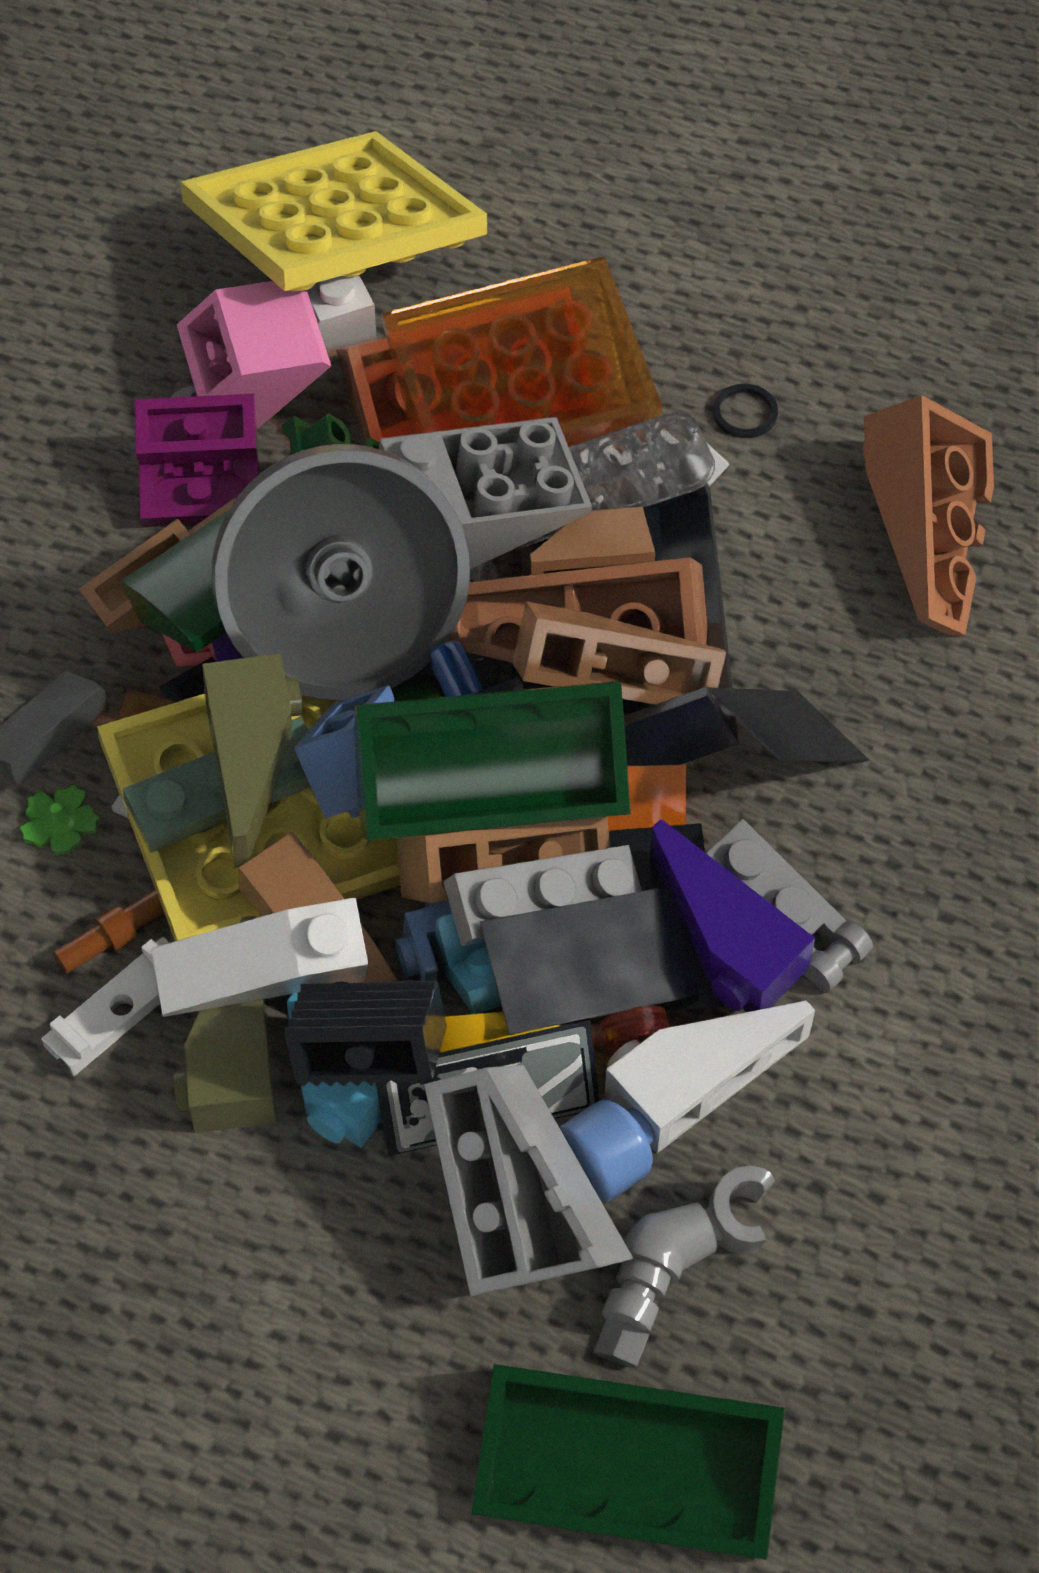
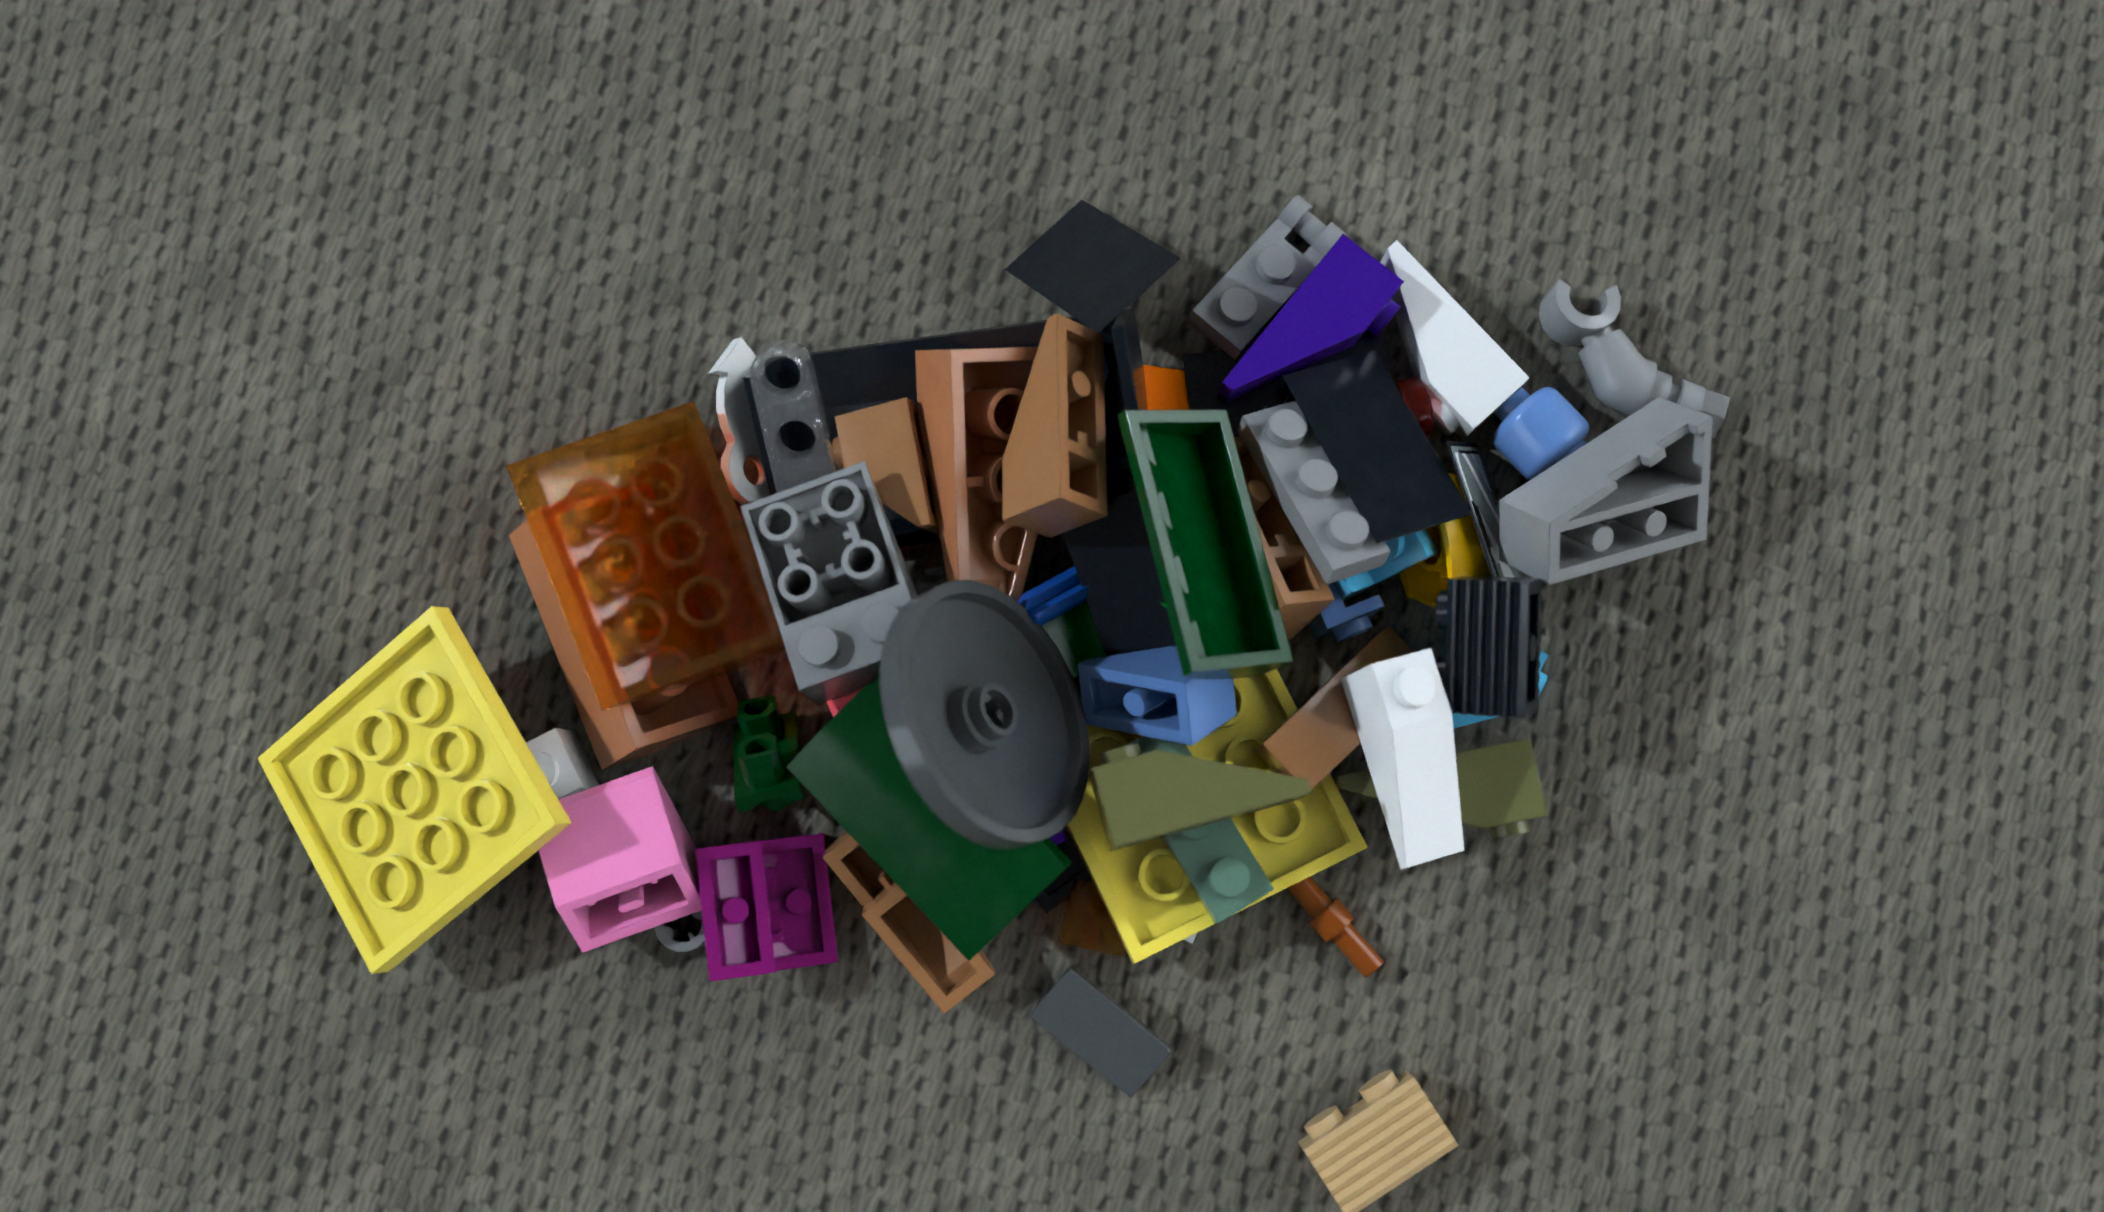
camera: 85 degrees left, 25 degrees up
(59, 820) = (1208, 996): bright green plant -> none
(94, 1025) = (1436, 925): white piece -> none
(629, 1461) = (1812, 401): dark green slope -> none
(745, 388) = (631, 302): black piece -> none
(926, 481) = (760, 140): nougat wedge -> none

